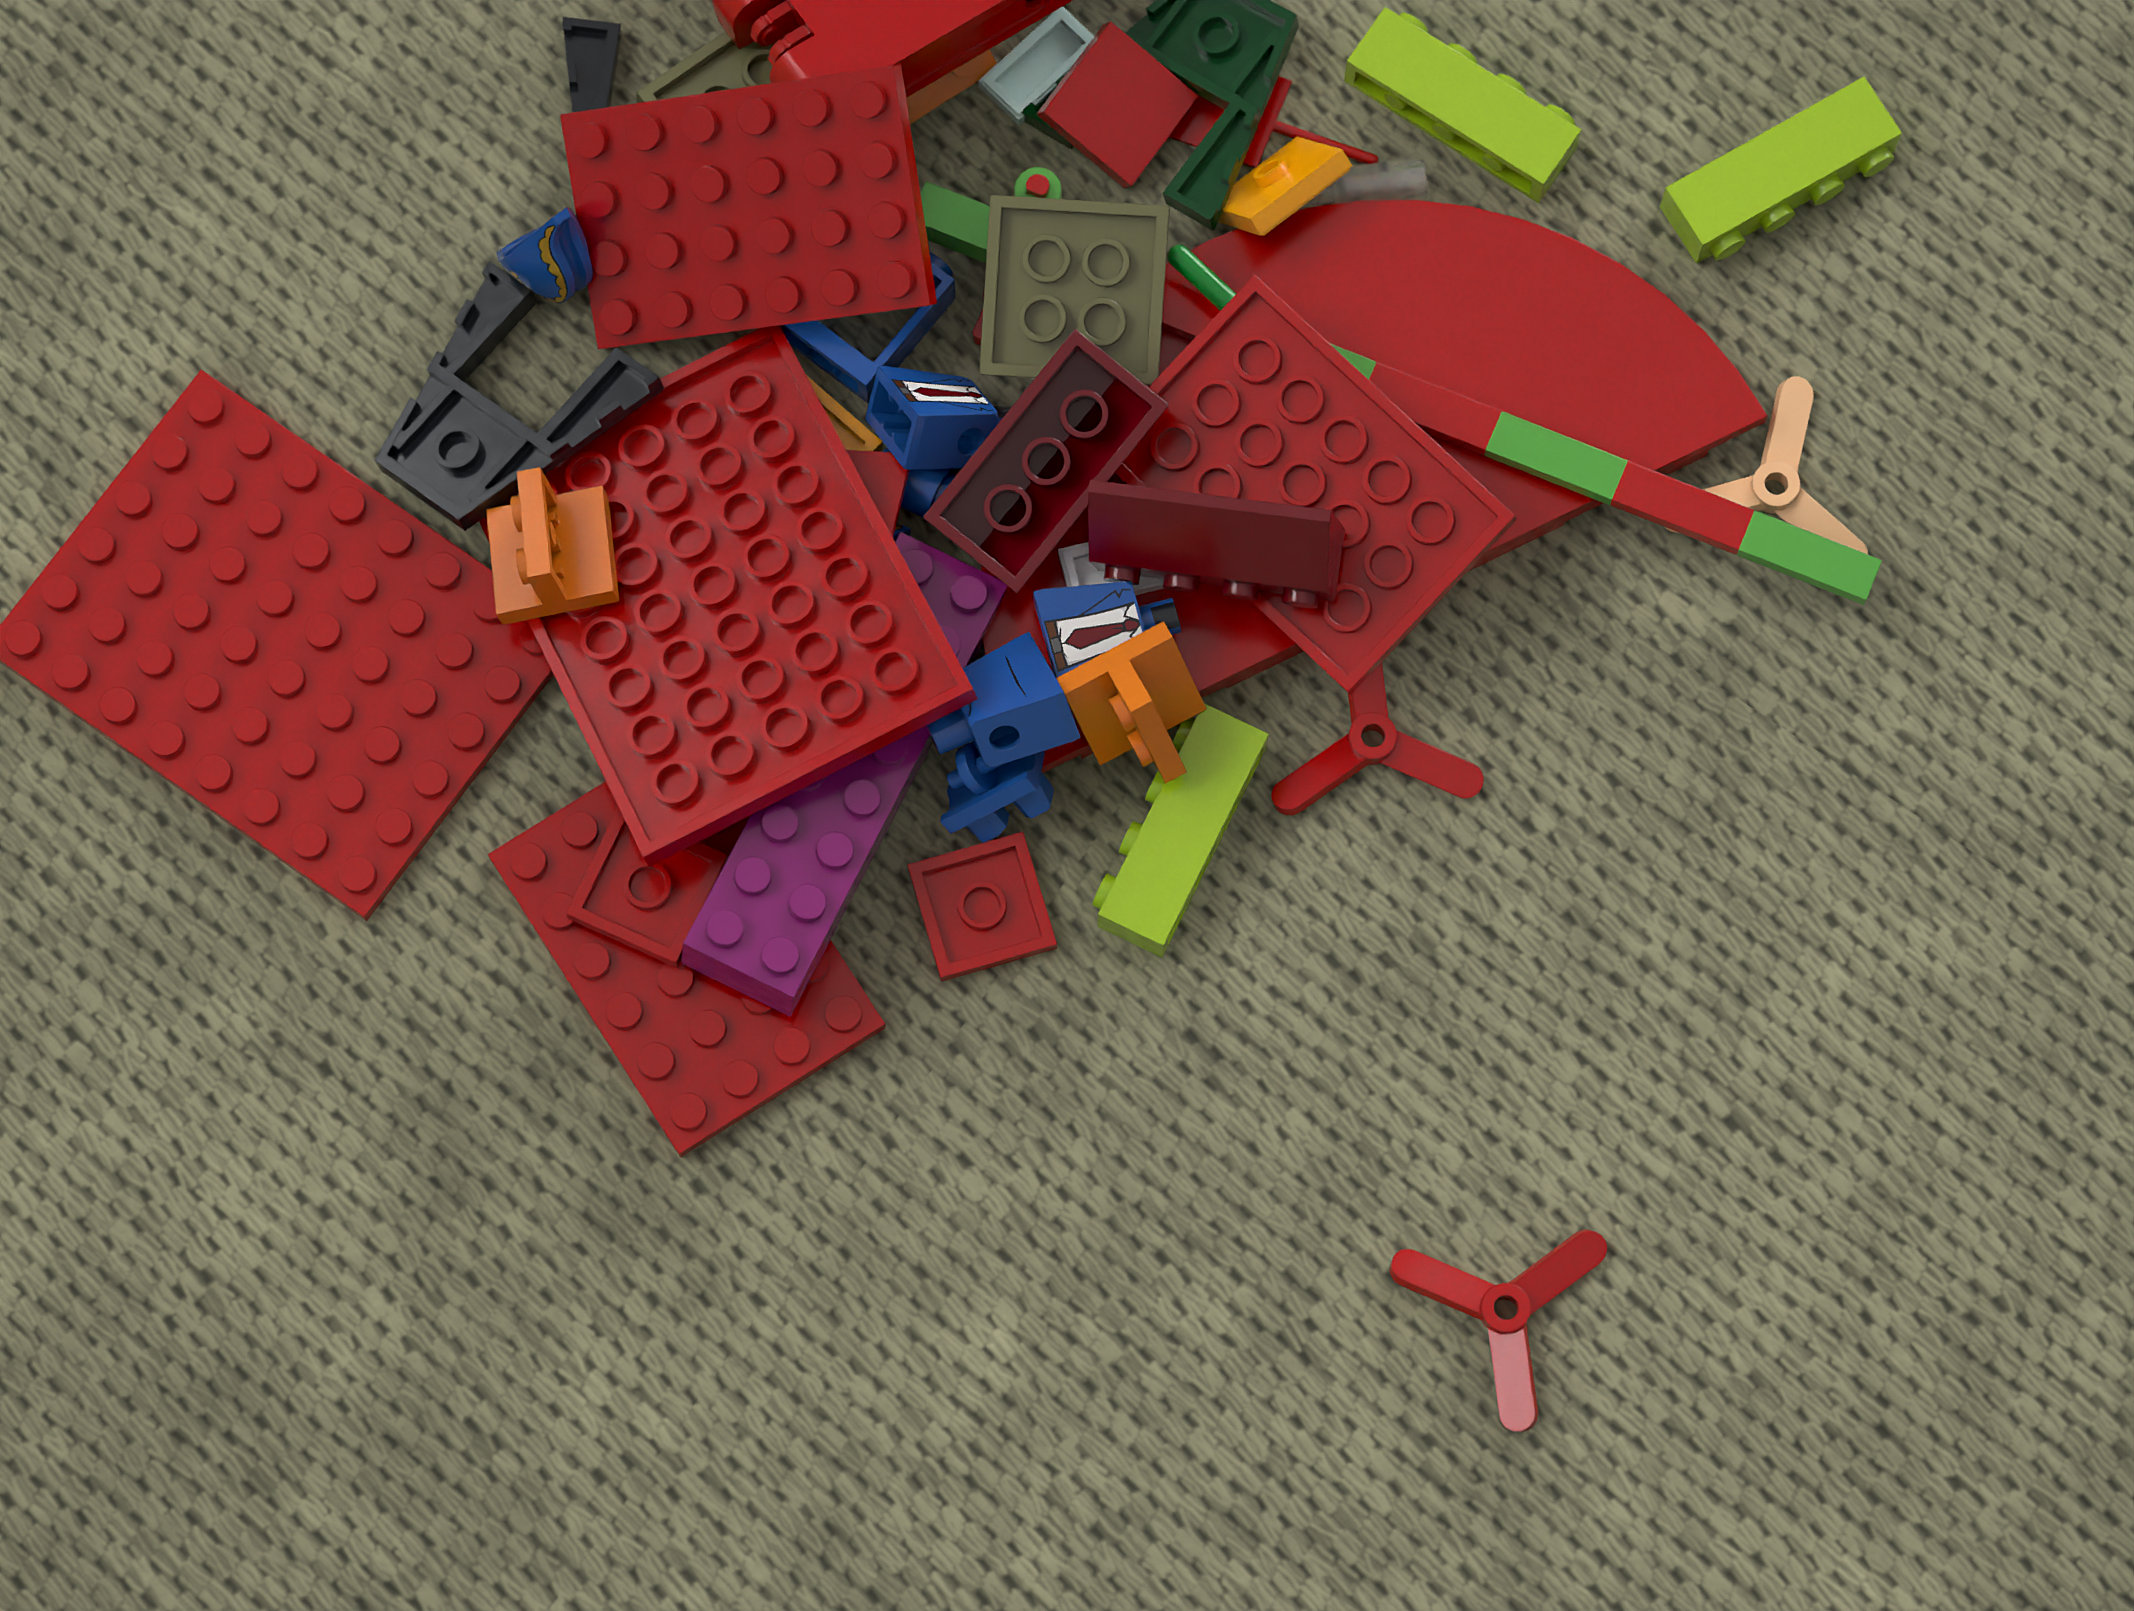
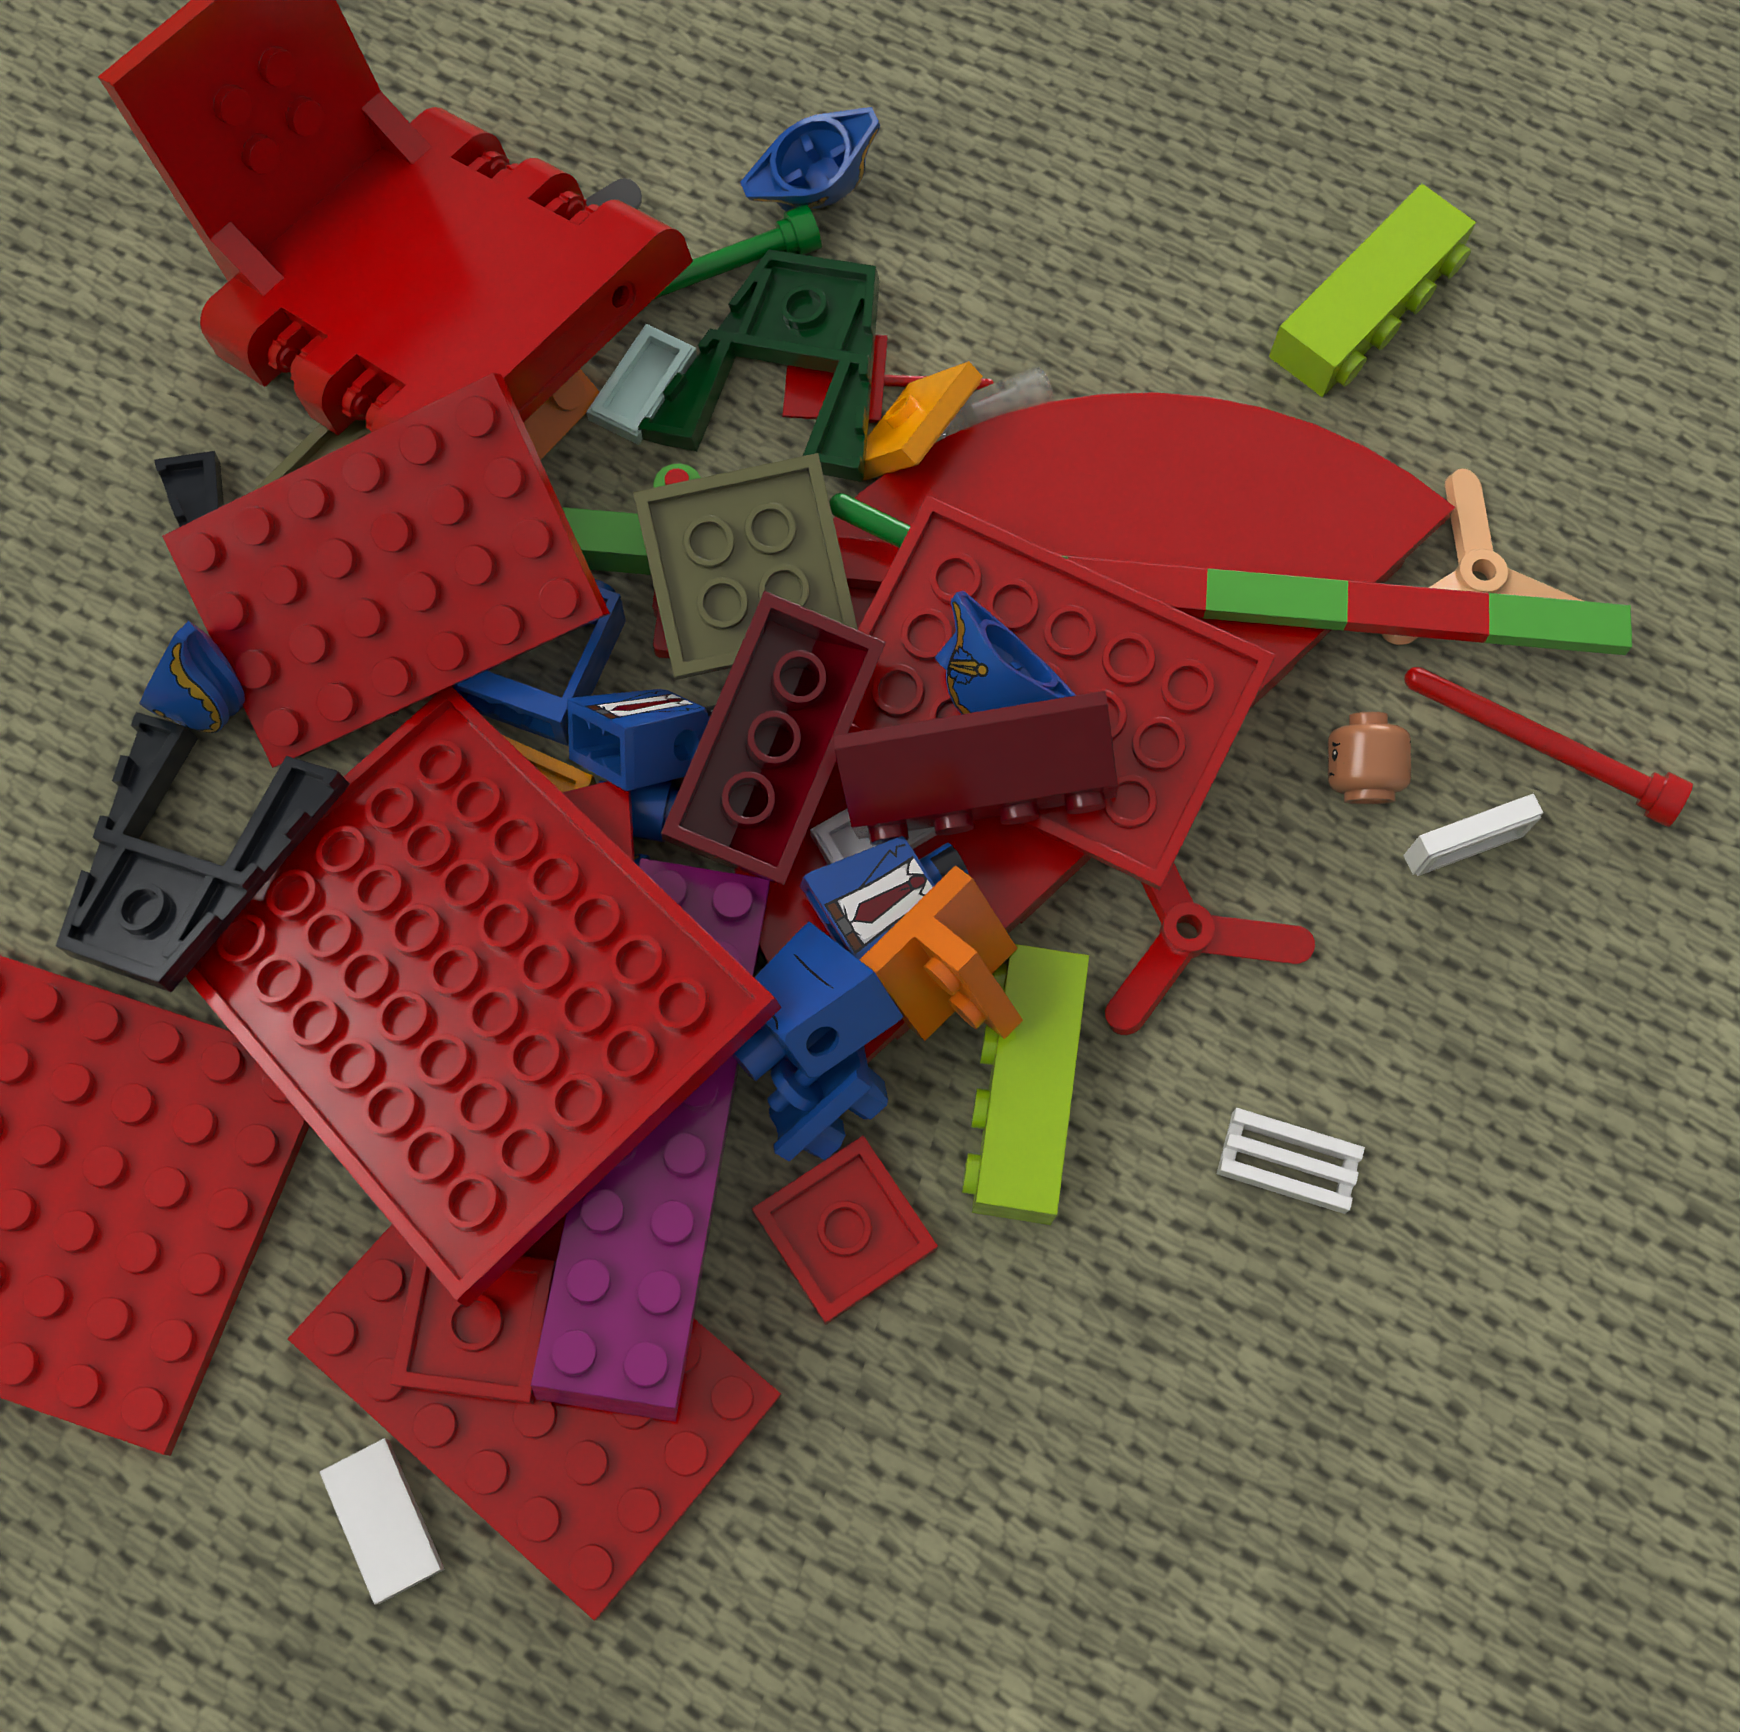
camera: 20 degrees left, 5 degrees down
(527, 1024) = (381, 1521): none -> white tile
(551, 550) = (267, 985): orange bracket -> none
(1117, 105) = (729, 393): red tile -> none
(1260, 454) = (991, 665): none -> blue hat
(1402, 945) = (1345, 1176): none -> white tile
(1462, 103) = (1056, 309): lime brick -> none
(1507, 1337) = (1520, 1500): red piece -> none
(1594, 632) = (1369, 759): none -> nougat head
(1663, 729) = (1473, 835): none -> white tile
(1853, 742) = (1658, 794): none -> red piece

